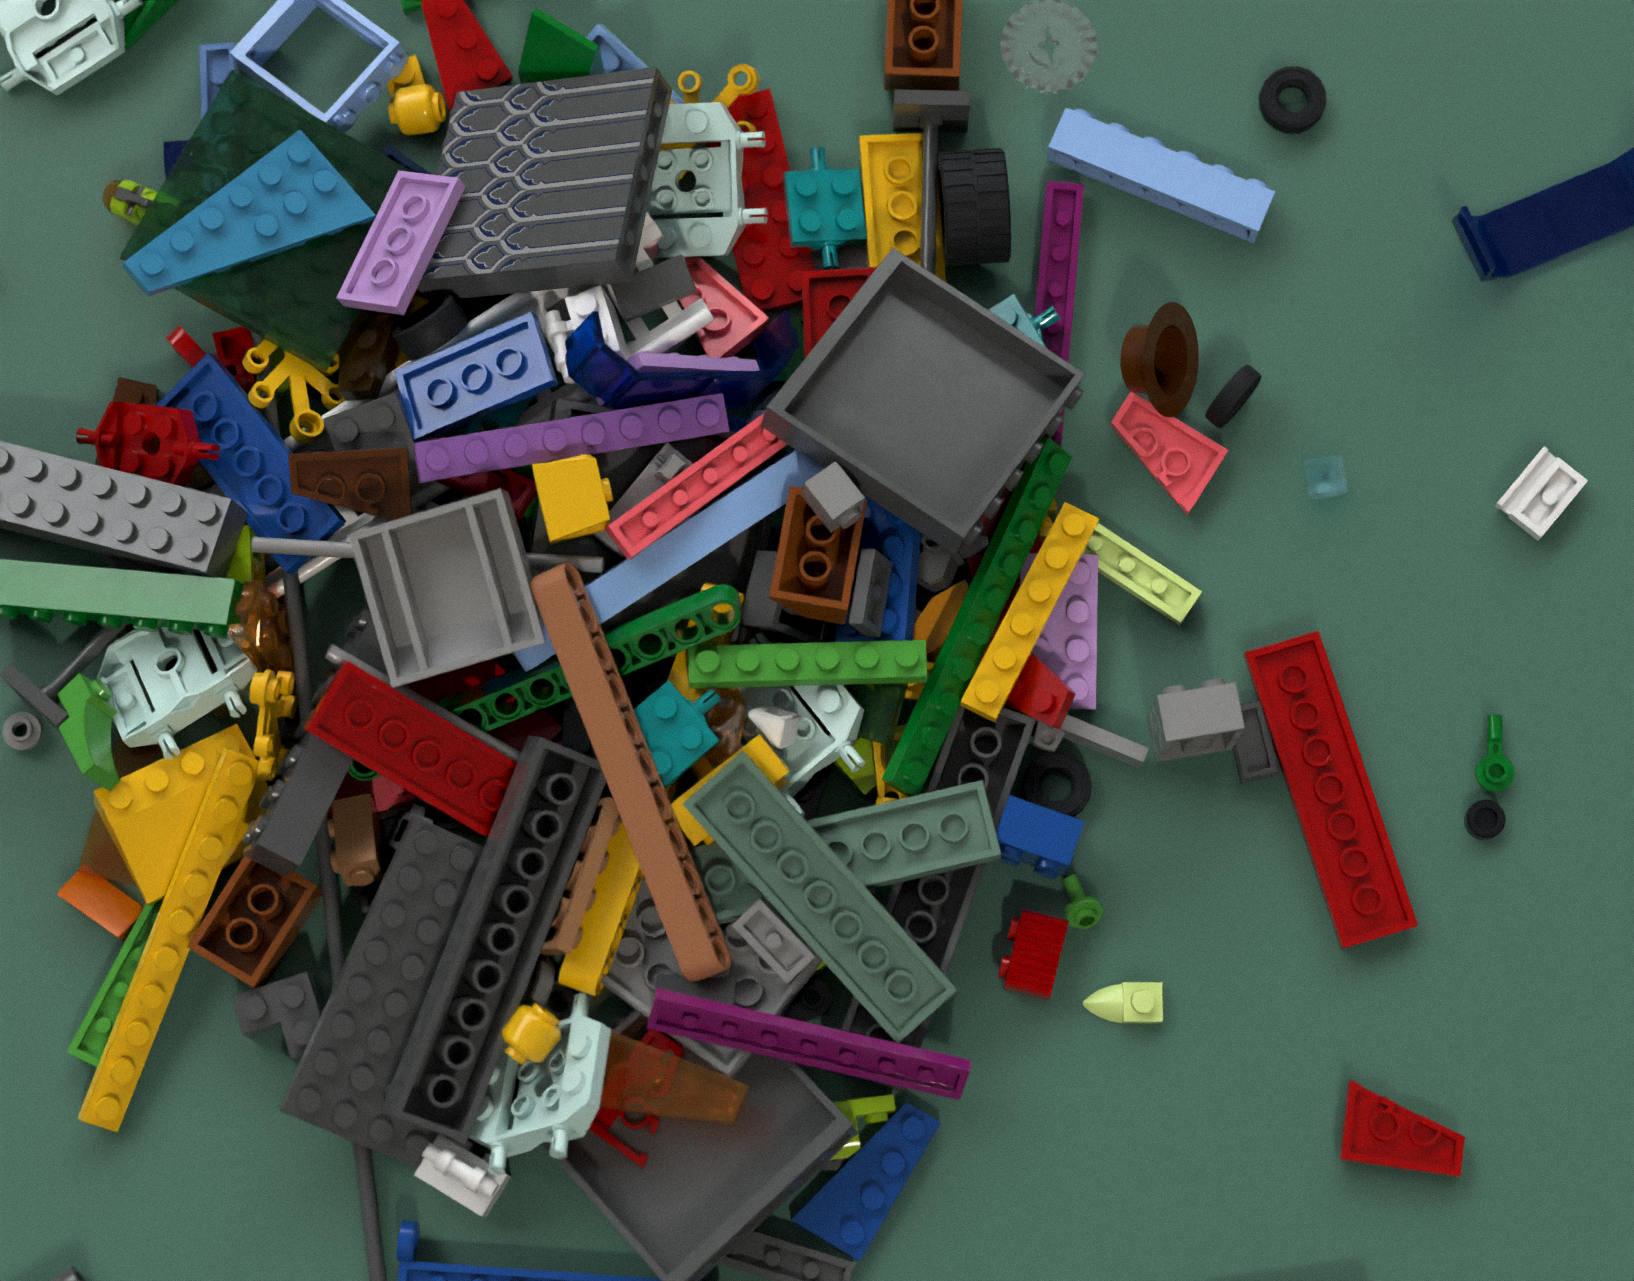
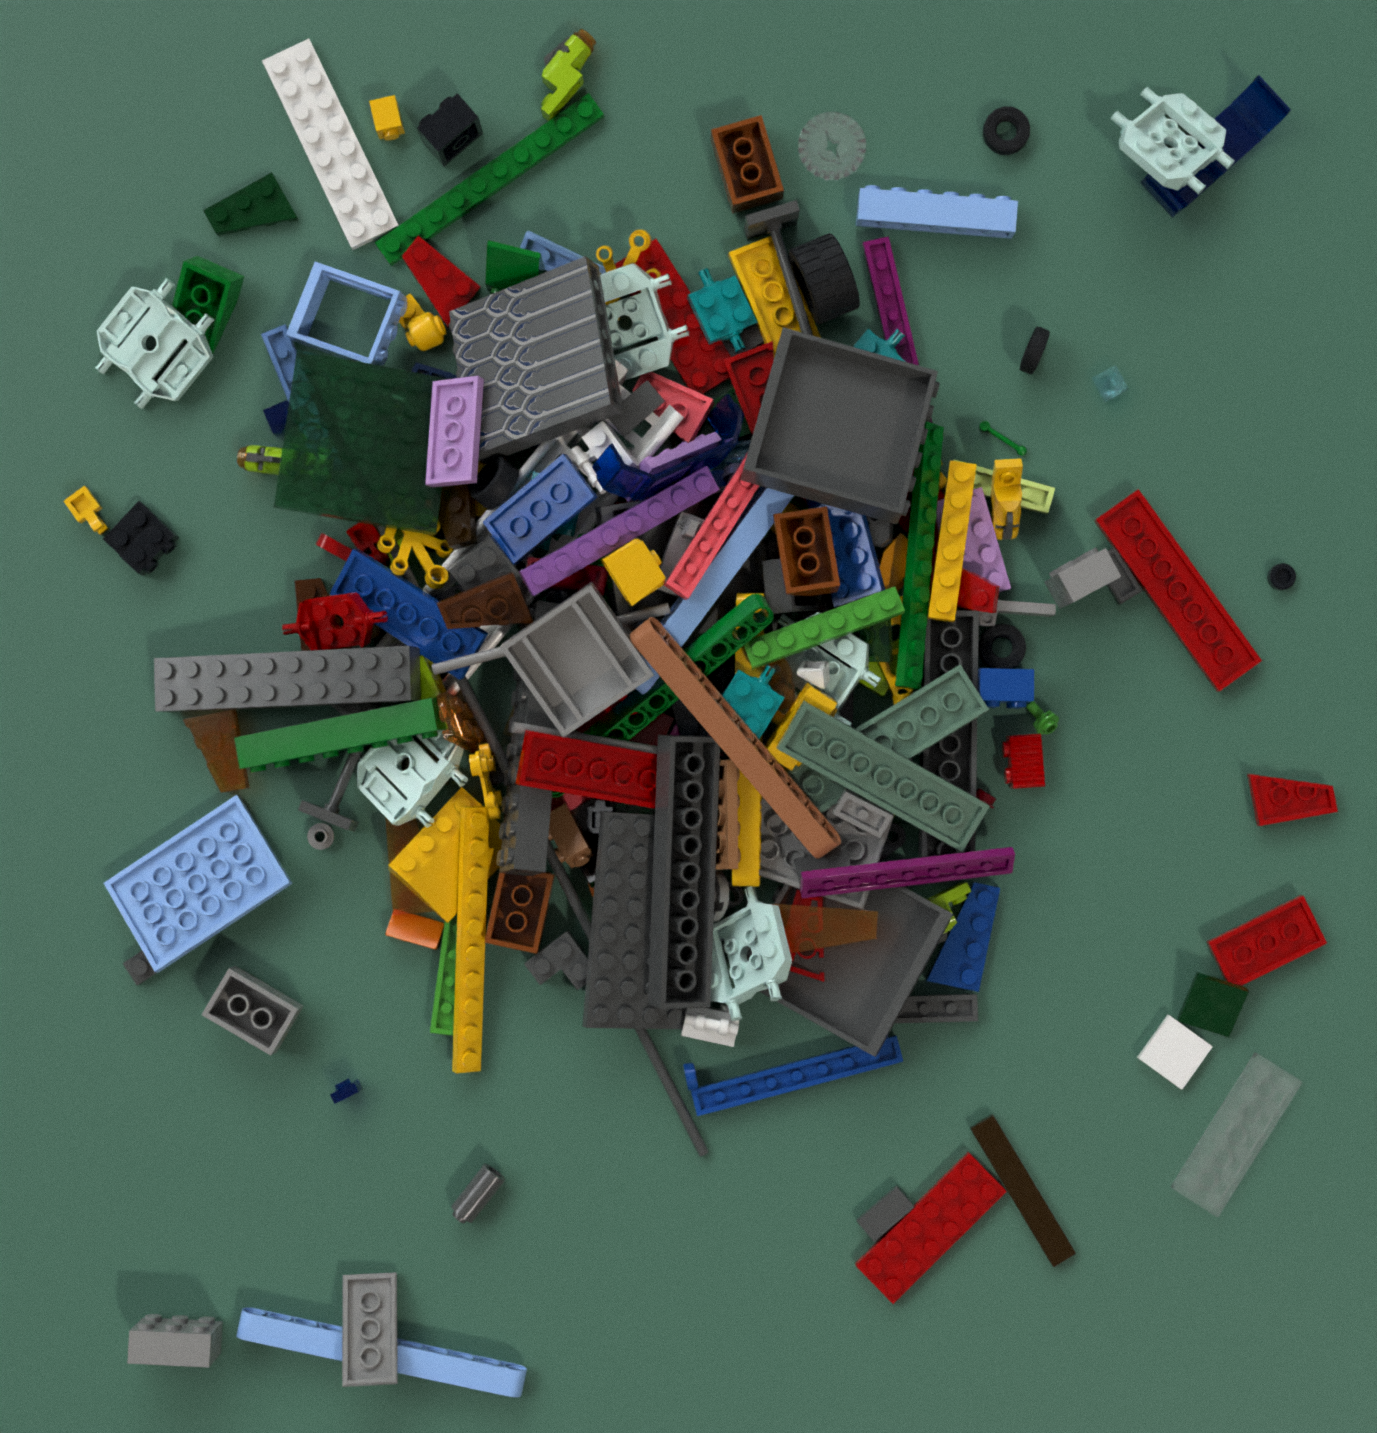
camera: 25 degrees left, 10 degrees up
(89, 728) = (368, 824): bright green slope -> none
(261, 212) = (358, 440): dark azure wing -> none
(531, 1034) = (728, 925): yellow head -> none
(834, 497) = (807, 514): light grey brick -> none
(870, 593) = (849, 567): dark grey plate -> none
(964, 991) = (984, 796): none -> dark red plate
(1126, 579) = (1006, 497): none -> yellow plate
(1128, 1002) = (1092, 771): yellowish green plate -> none
(1133, 480) = (985, 426): none -> green hinge
(1162, 359) = (980, 341): reddish brown hose -> none
(1169, 449) = (1003, 399): coral wing -> none
(1482, 159) = (1147, 135): none -> light aqua piece
(1494, 771) = (1278, 542): green plate -> none
(1541, 493) = (1253, 348): white plate -> none

